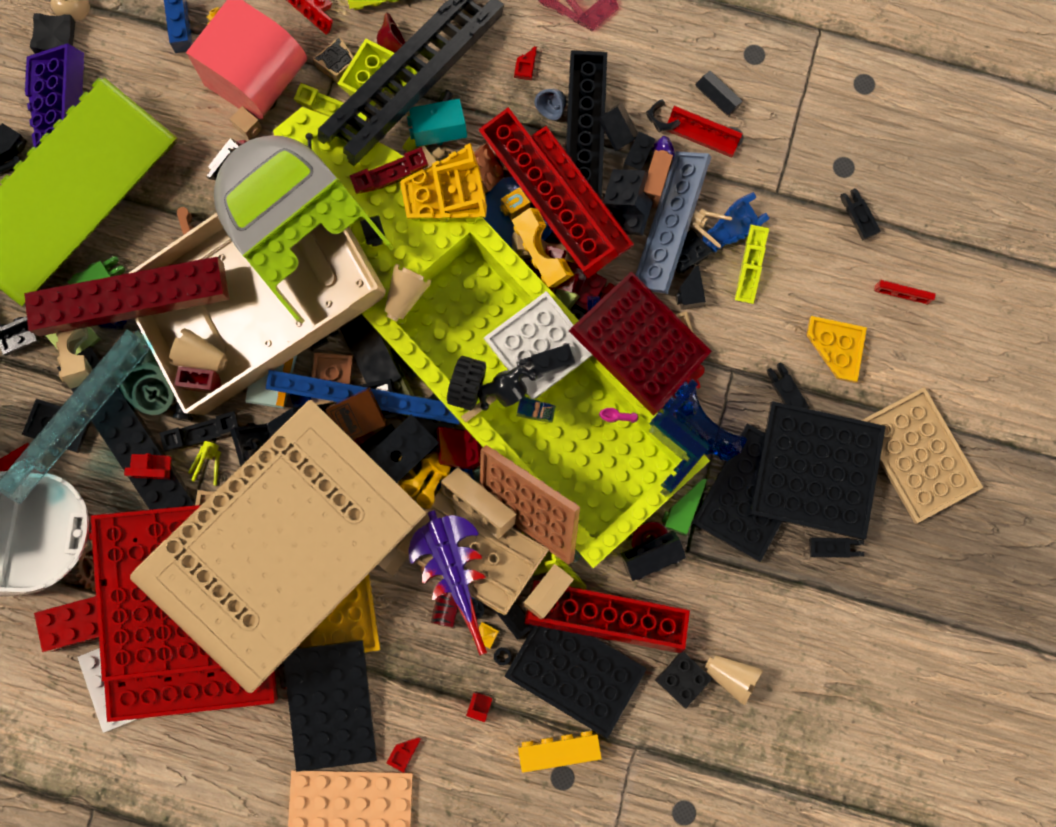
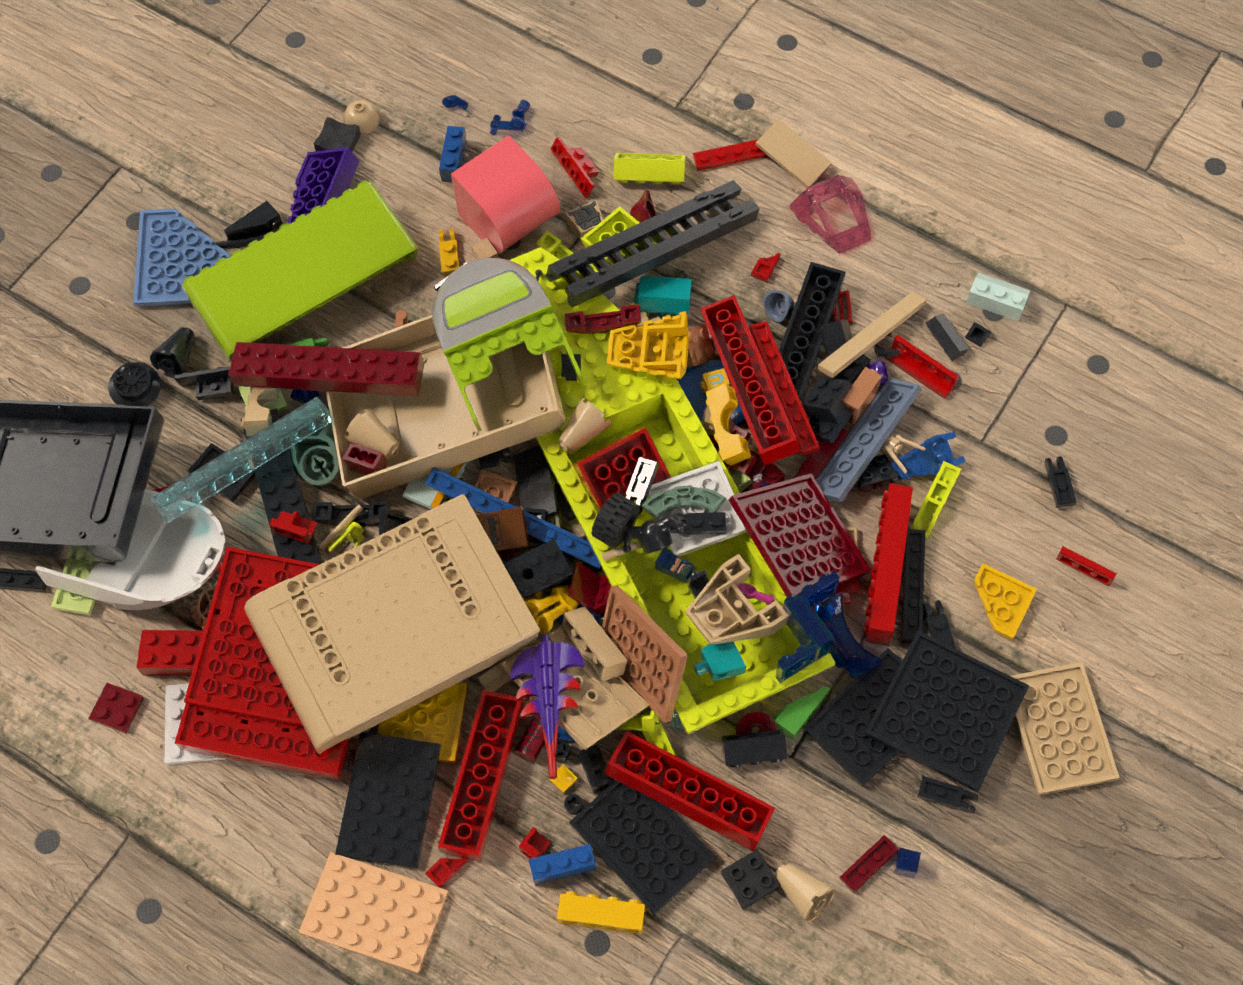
camera: 25 degrees right, 15 degrees down
(36, 692) = (116, 708): none -> dark red plate
(180, 415) = (340, 492): black wheel -> none
(195, 449) = (339, 529): none -> tan bar
(208, 131) = (448, 253): none -> yellow hinge
(409, 658) = (481, 776): none -> red brick
(455, 325) = (613, 466): none -> red slope
(479, 335) = (642, 481): none -> hinge
(510, 718) = (562, 864): none -> blue brick
(522, 338) = (683, 497): none -> sand green tile
(548, 591) = (636, 743): tan piece -> none
(567, 425) = (697, 582): none -> black bracket
(598, 447) = (725, 613): none -> tan wedge
(605, 491) = (720, 661): none -> teal torso
(621, 98) = (849, 312): none -> red tile
(630, 259) = (819, 459): none -> dark red tile
(649, 112) = (872, 334): none -> tan tile
(691, 291) = (866, 509): black slope -> none
(727, 342) = (887, 564): none -> red brick
(746, 82) = (978, 334): none -> black slope
(753, 354) = (913, 585): none -> black tile
(756, 38) = (998, 296): none -> light aqua slope
(783, 632) = (869, 864): none -> dark red tile
(818, 623) = (907, 862): none -> clear blue brick

